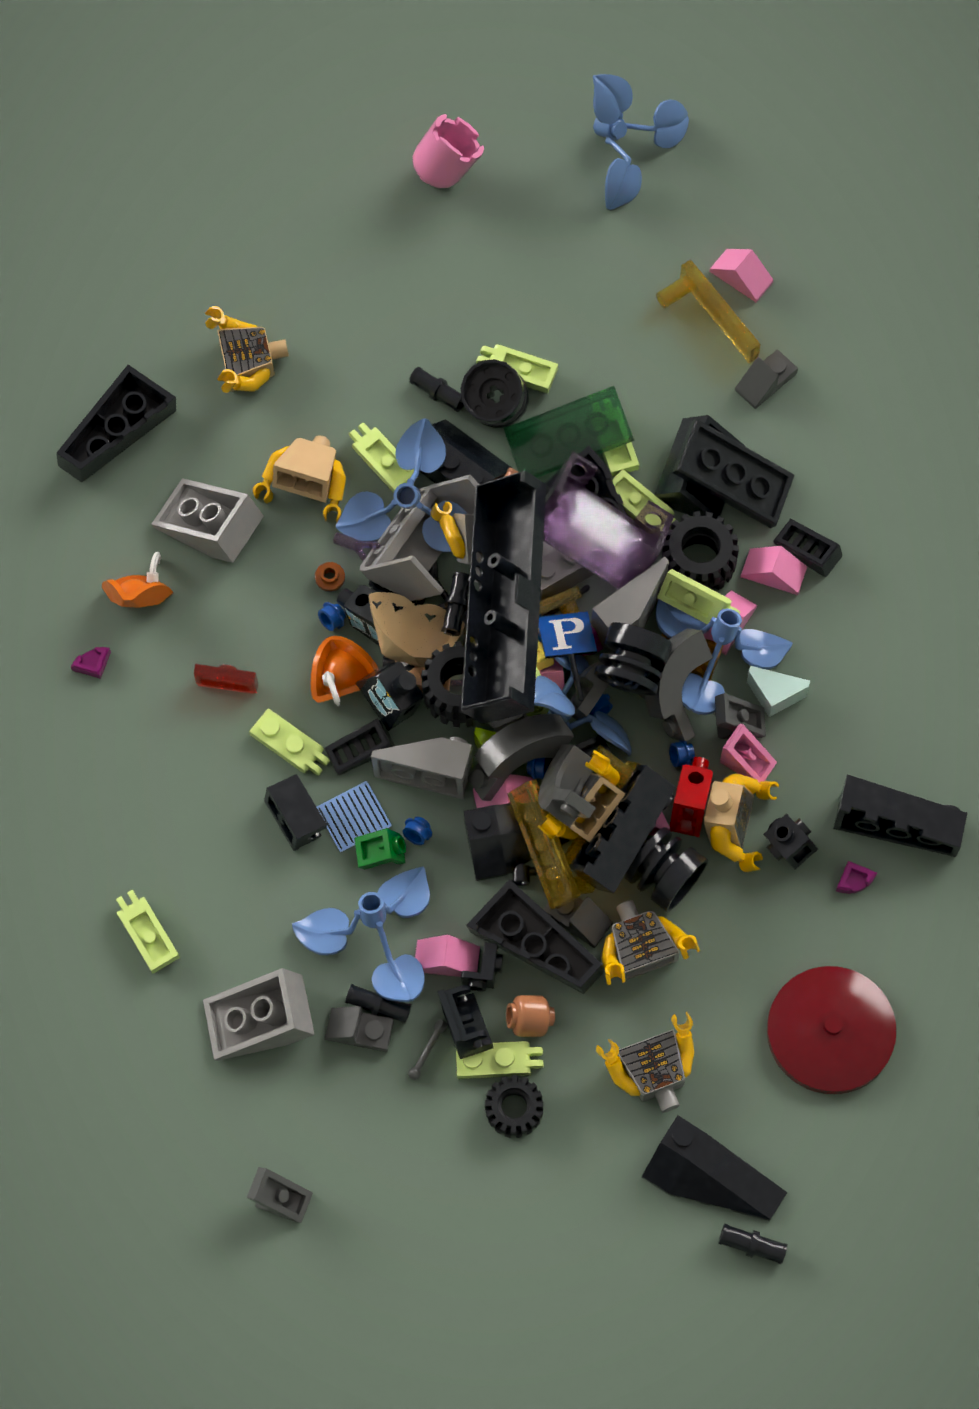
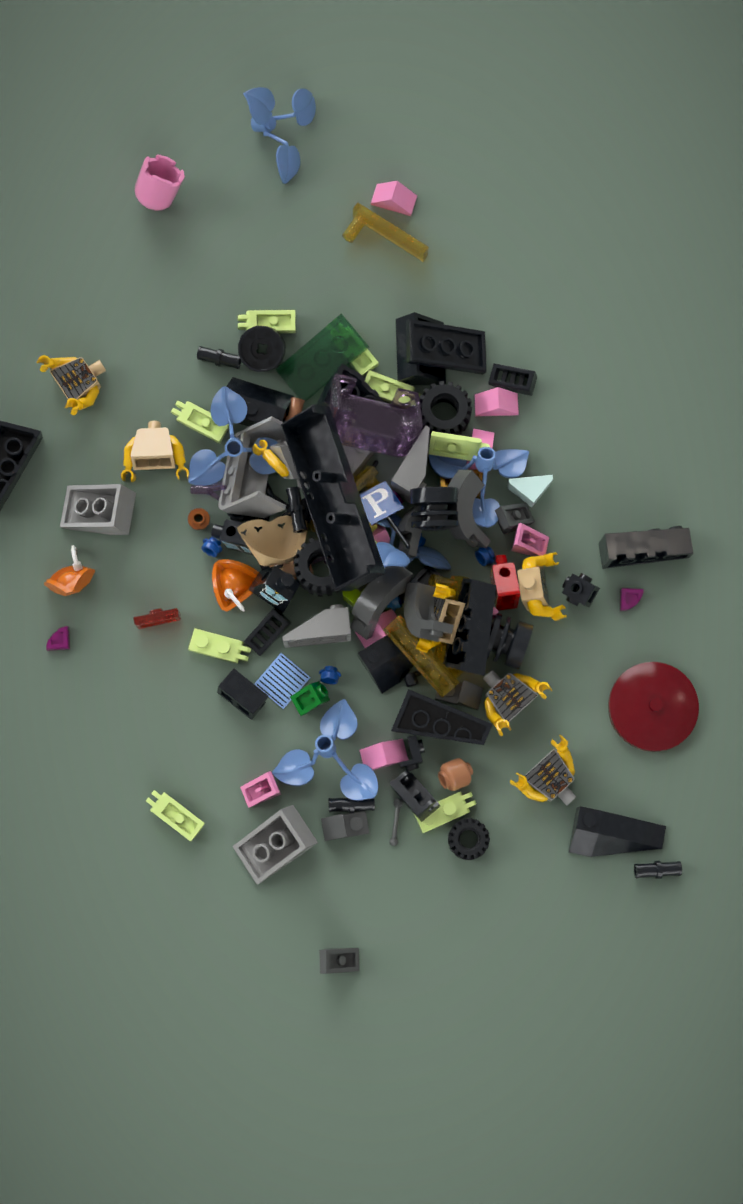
camera: 25 degrees left, 10 degrees up
(269, 940) = (260, 789): none -> bright pink slope
(765, 378) = (439, 269): dark grey slope -> none

